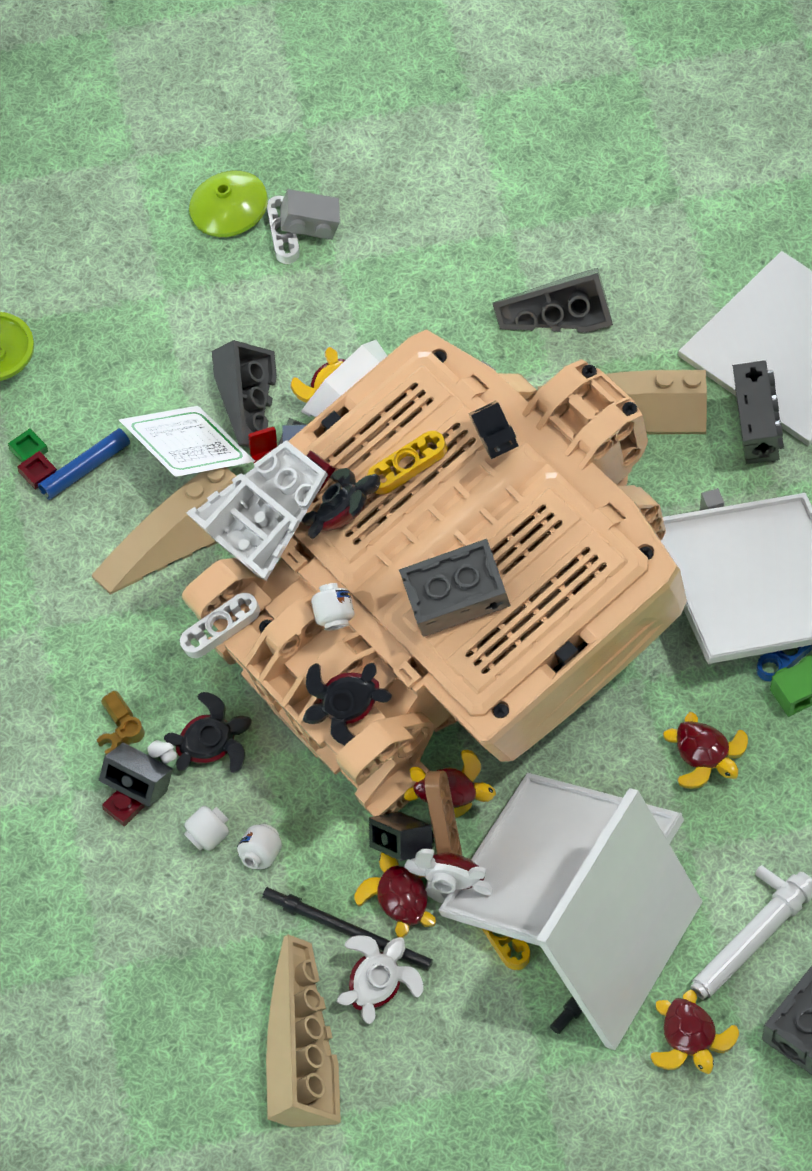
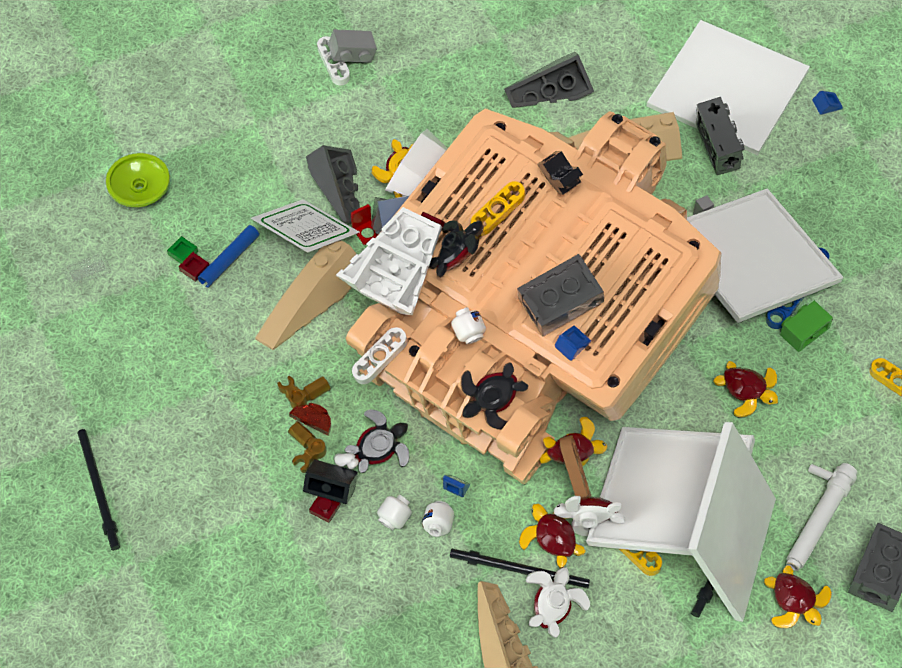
camera: 15 degrees left, 0 degrees up
(127, 661) = (310, 392): none -> pearl gold bar
(138, 688) = (312, 416): none -> clear red plate
(228, 203) = (288, 48): lime dish -> none
(294, 807) = (455, 485): none -> blue slope
(399, 835) = (545, 490): black brick -> none
(458, 651) = (572, 342): none -> blue slope

